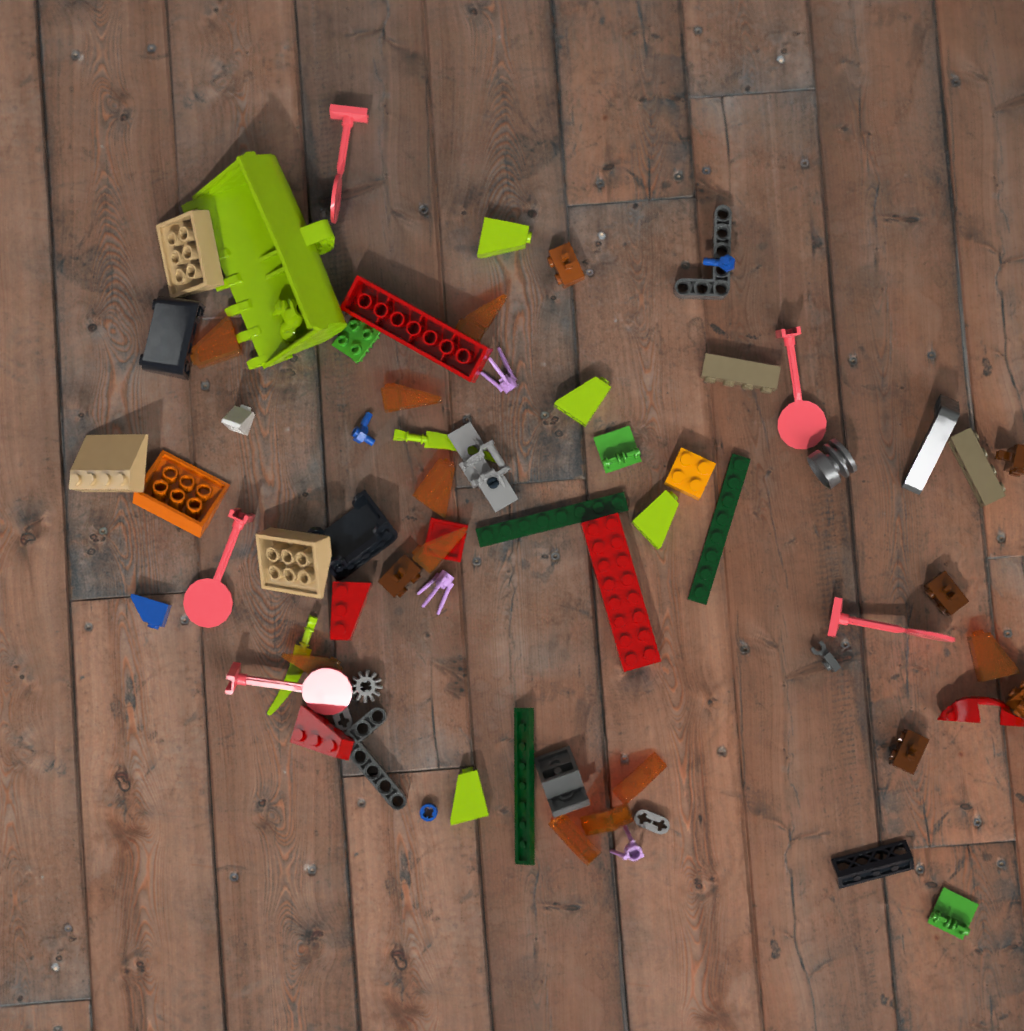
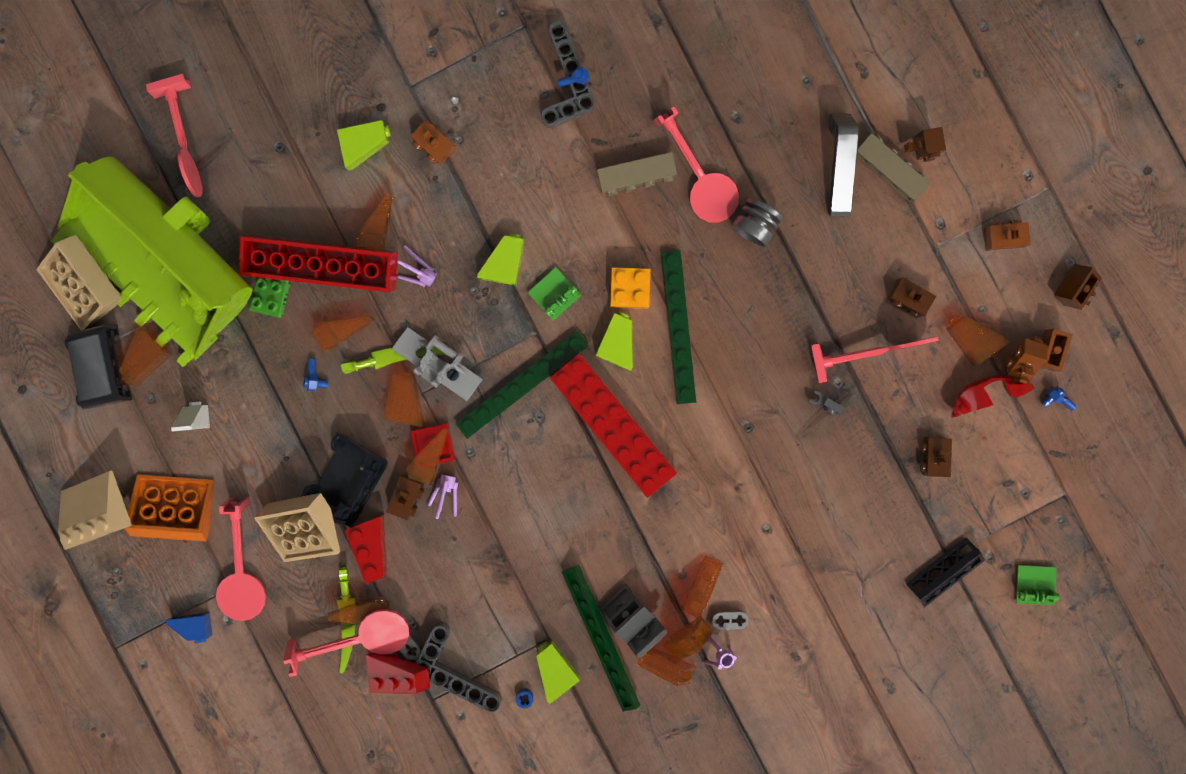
camera: 20 degrees left, 5 degrees up
(366, 693) = (413, 604): light grey gear -> none

